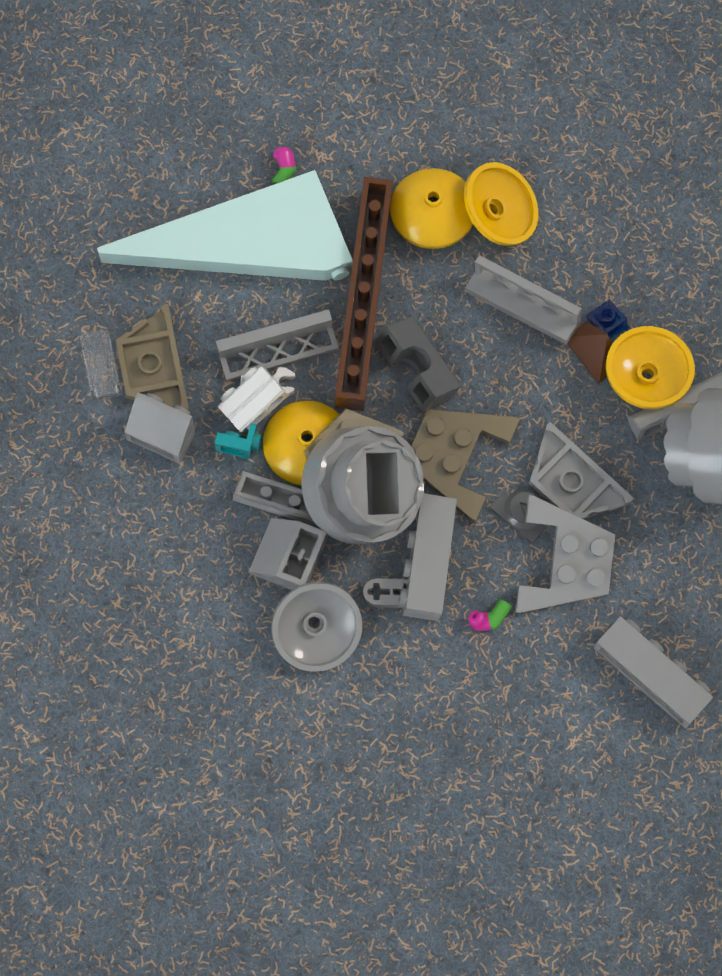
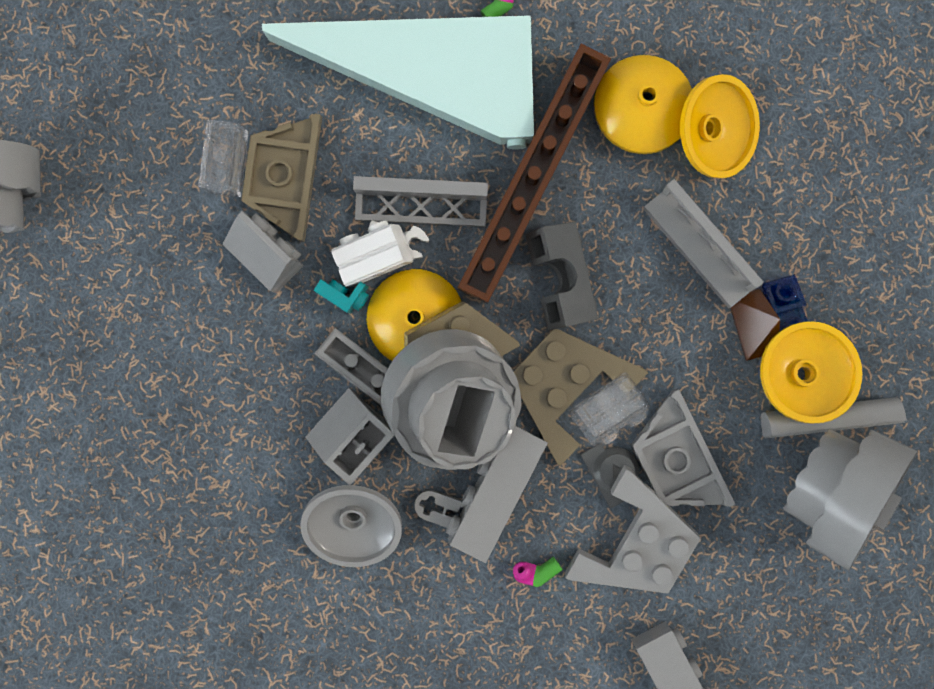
camera: 25 degrees right, 15 degrees up
(499, 456) = (610, 410): none -> clear brick

